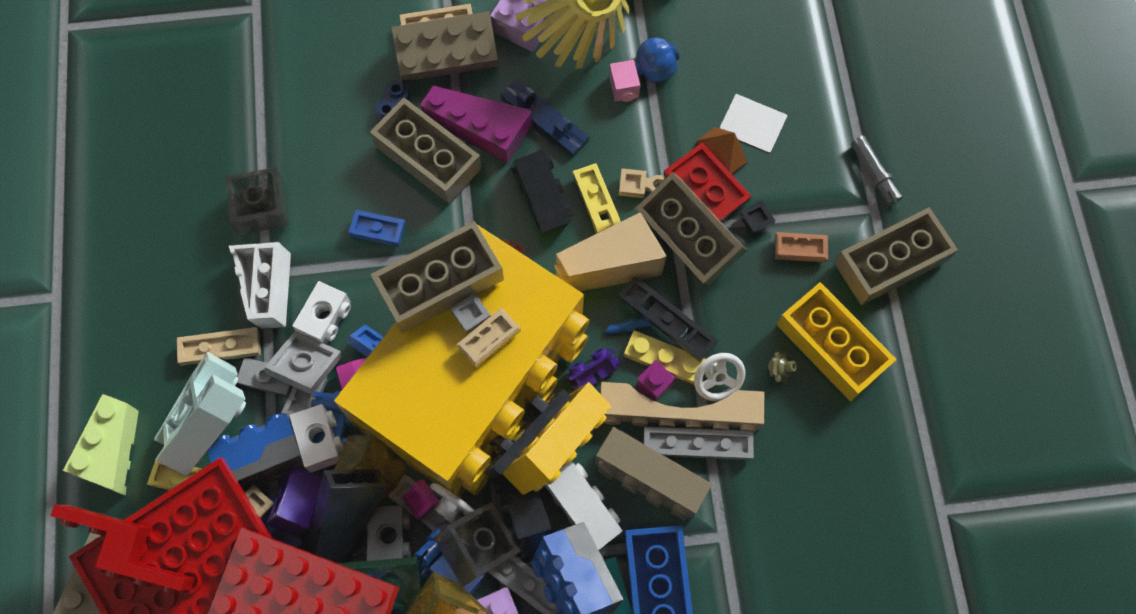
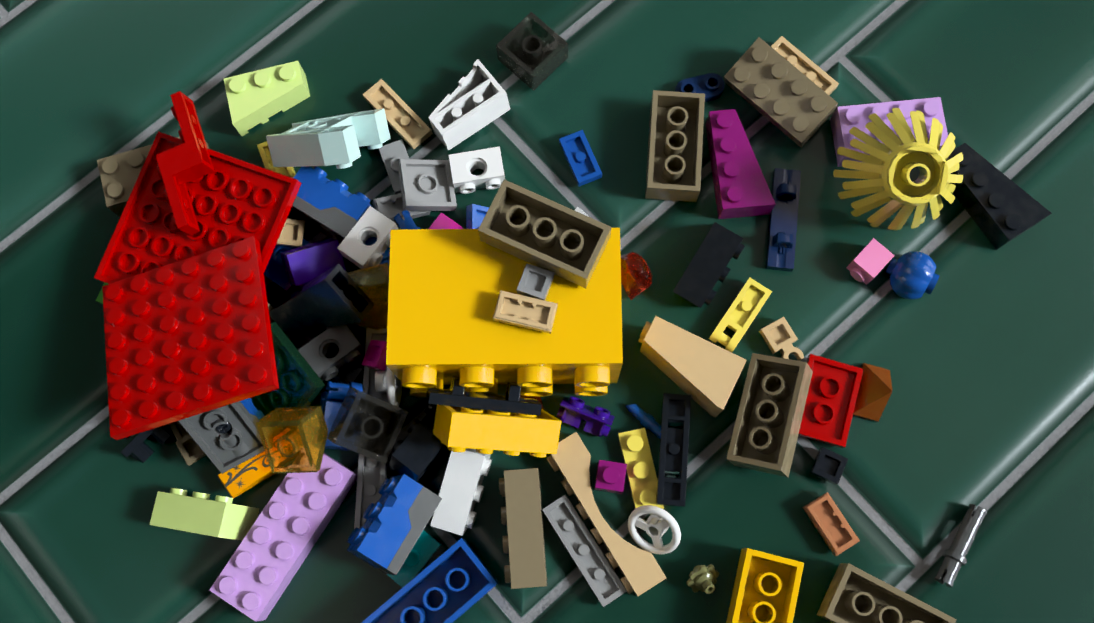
camera: 60 degrees right, 5 degrees up
(753, 122) = (921, 401): white sticker -> none

